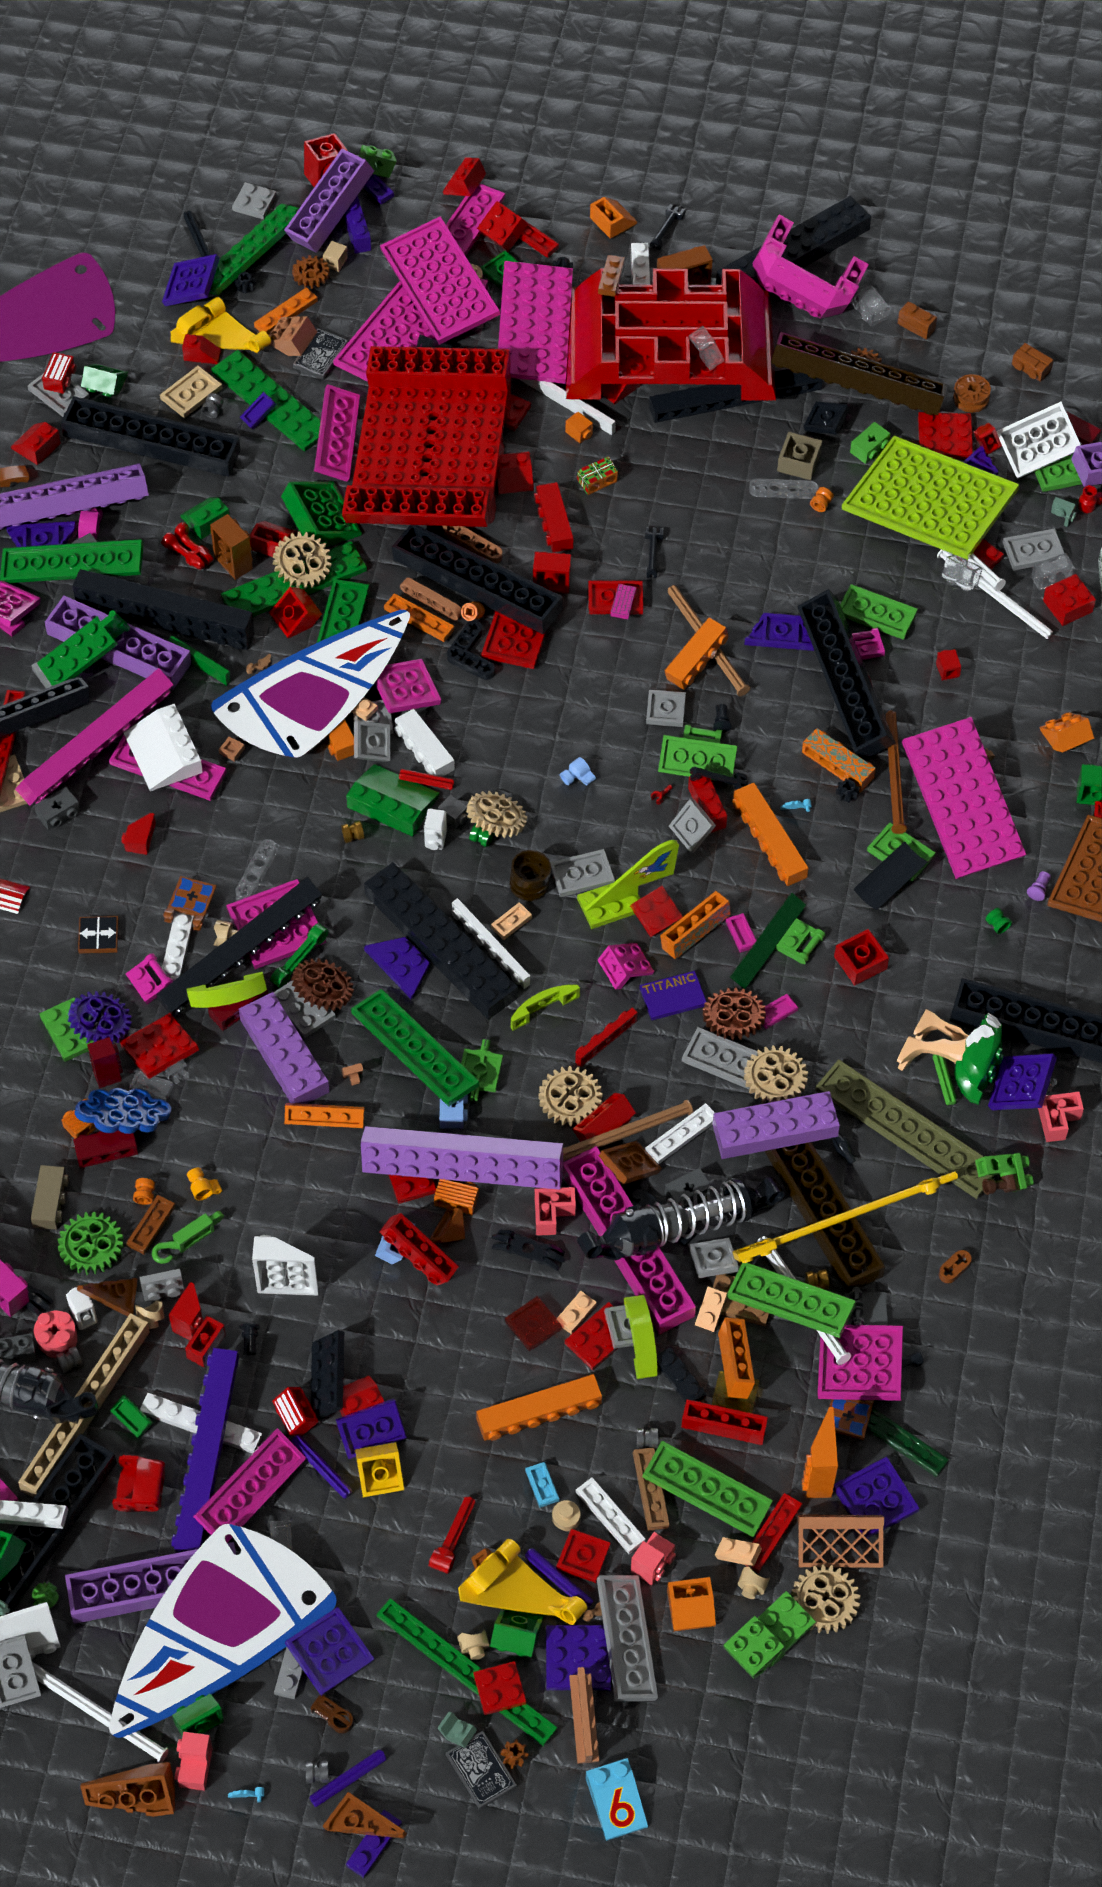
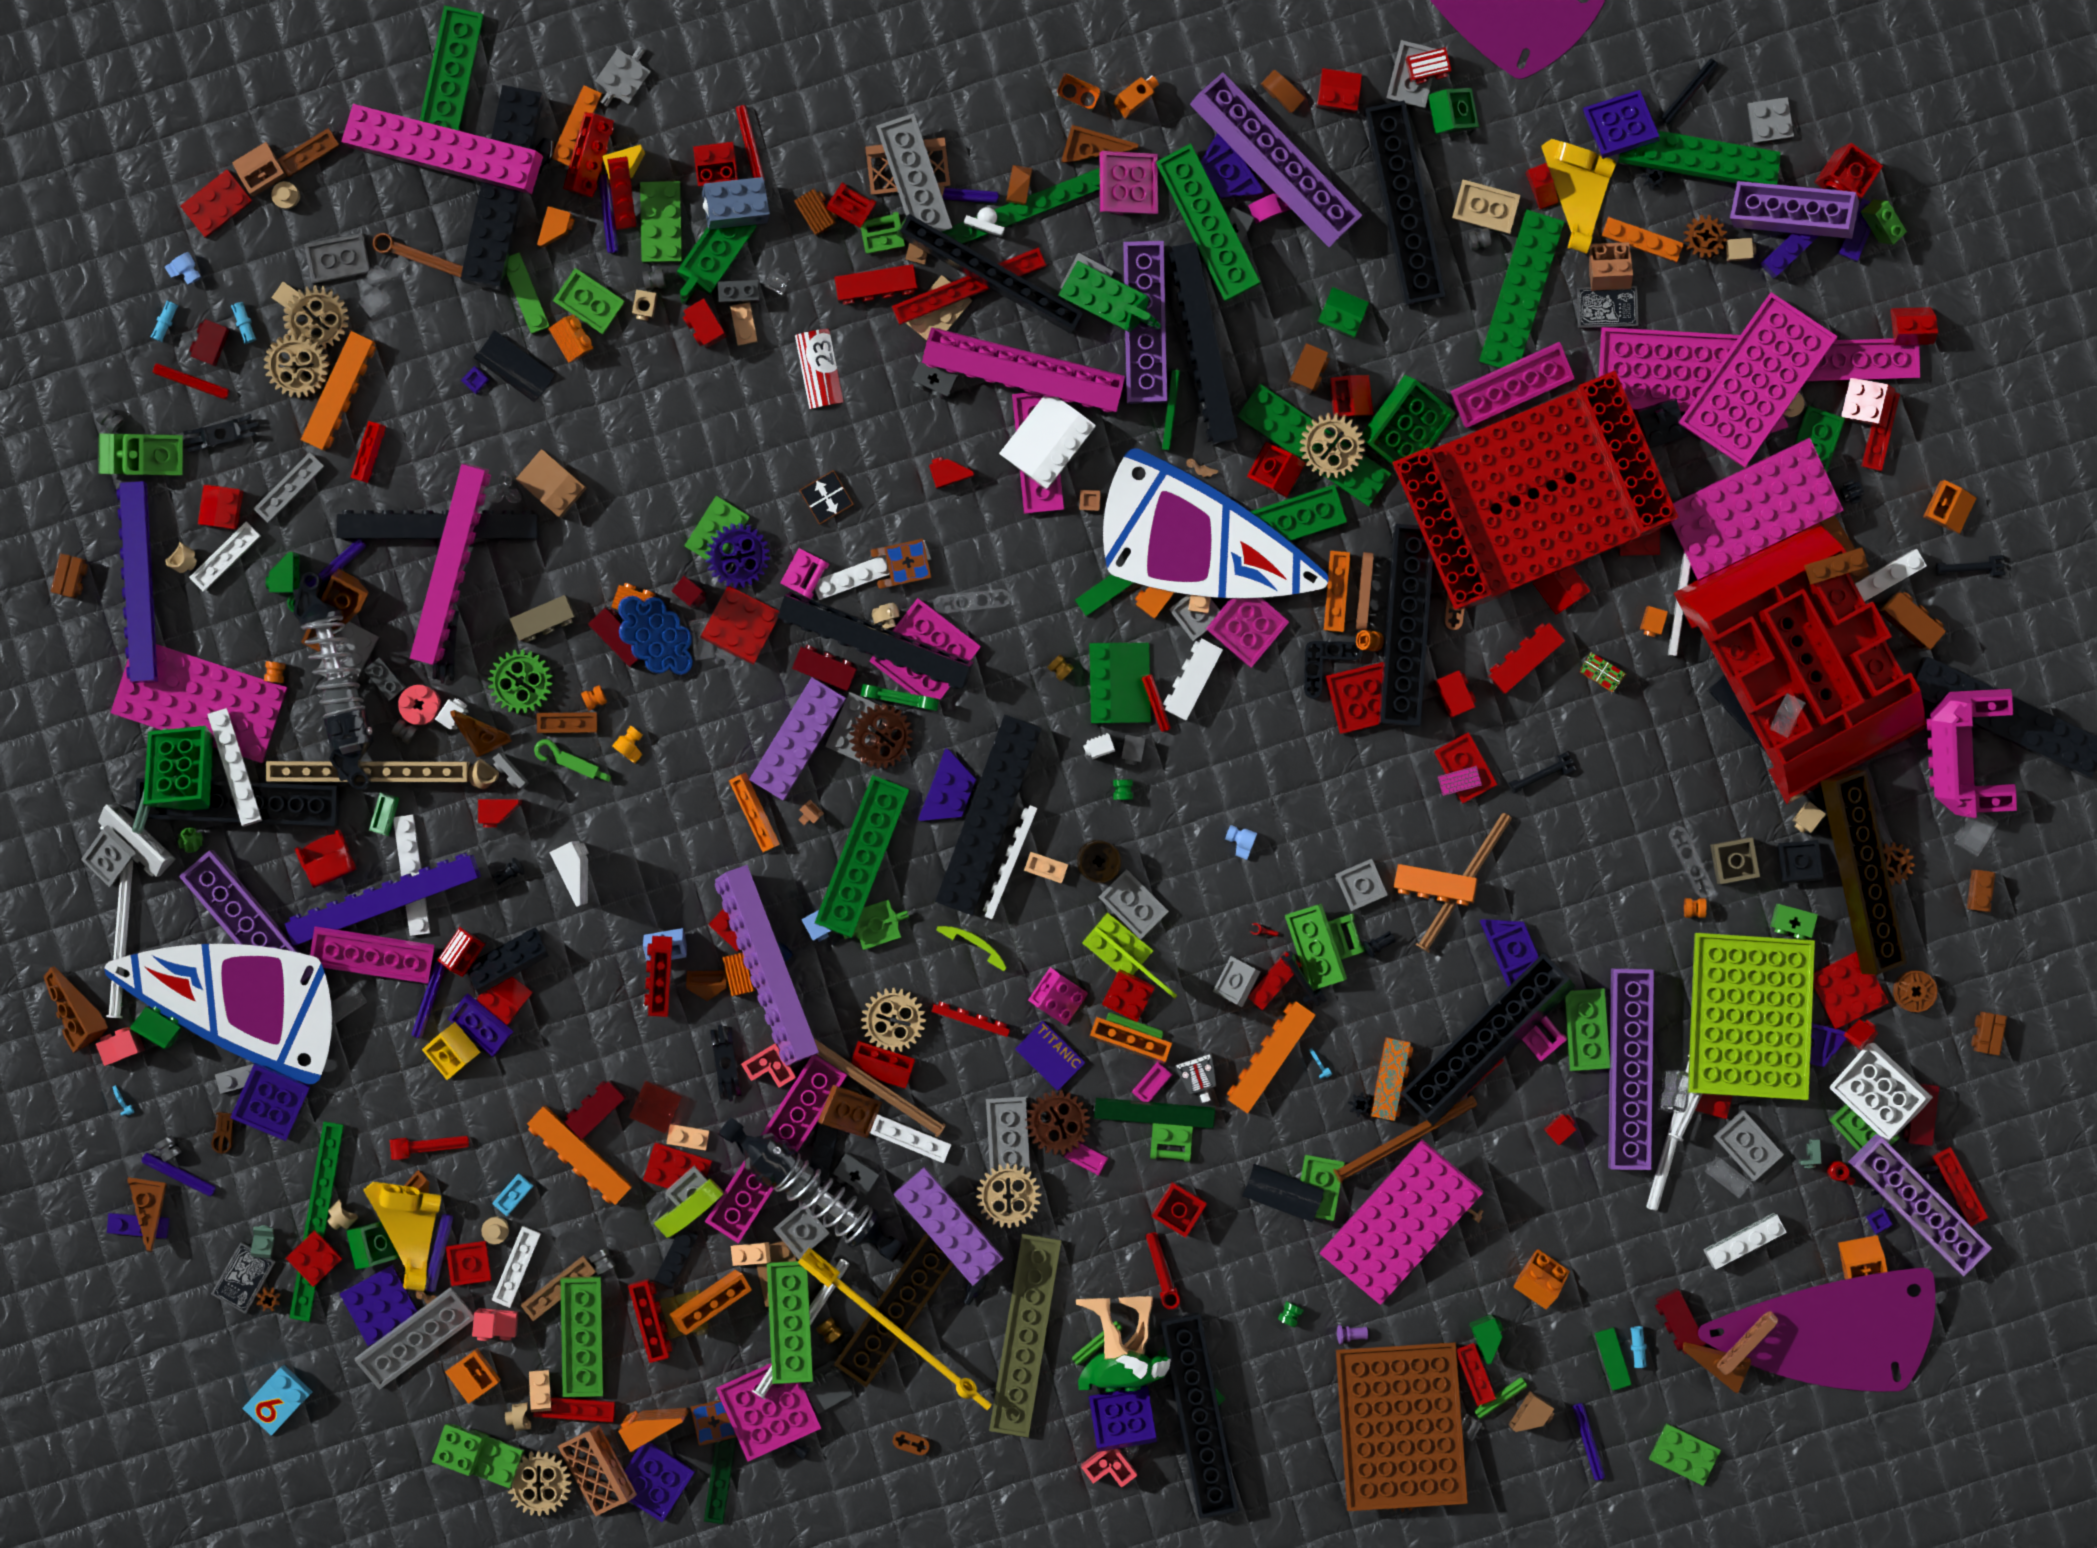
camera: 60 degrees right, 30 degrees up
(197, 555) = (1298, 337): red piece -> none
(204, 1340) = (481, 838): red brick -> none
(227, 993) = (836, 678): lime slope -> none
(258, 410) = (1497, 289): dark purple tile -> none
(312, 774) = (1101, 593): none -> green tile
(372, 741) = (1164, 631): light grey plate -> none
(496, 814) = (1137, 805): tan gear -> none
(504, 1371) = (594, 1108): none -> dark red brick
(584, 1717) = (326, 1340): nougat fence -> none
(755, 893) = (1198, 1076): none -> torso
(794, 399) = (1808, 818): none -> tan brick
(913, 999) = (1161, 1270): none -> red axle
(928, 593) = (1630, 1069): none -> medium lavender brick
(1010, 1170) = (1026, 1445): bright green hips -> none
(1069, 599) = (1701, 1209): red brick -> none

